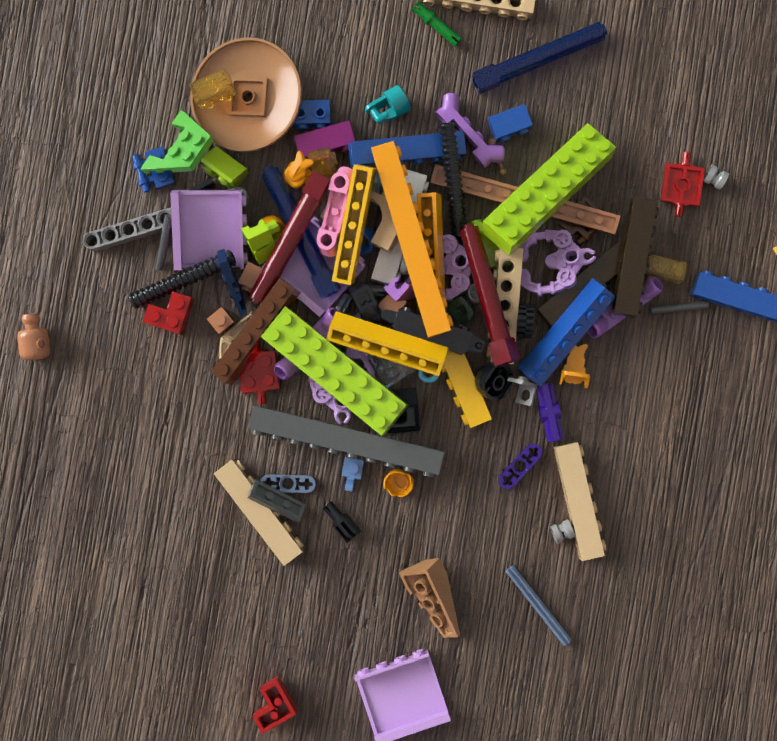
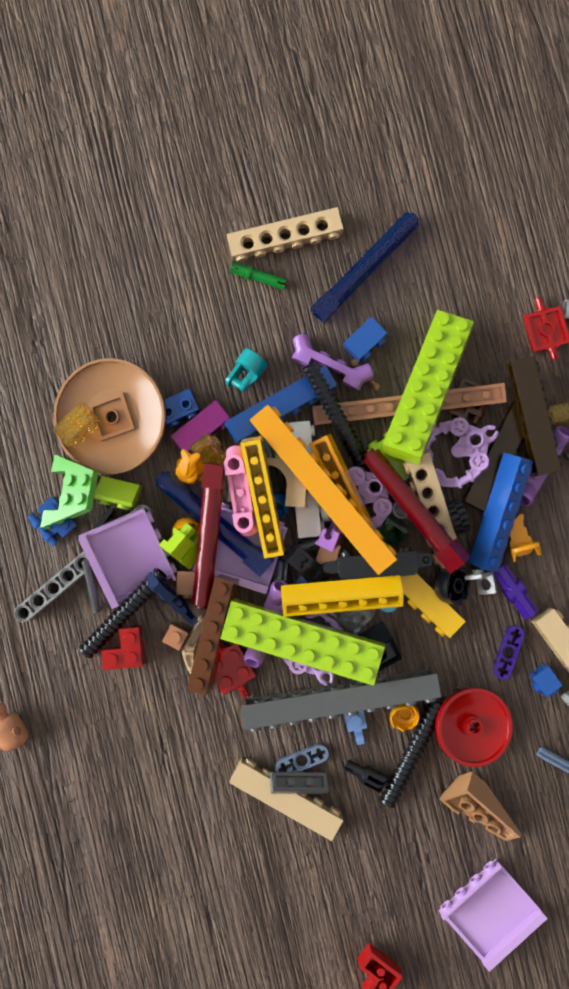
camera: 30 degrees left, 0 degrees up
(391, 520) = (411, 755): none -> black piece
(458, 518) = (474, 727): none -> red dish
(542, 506) = (545, 681): none -> blue brick

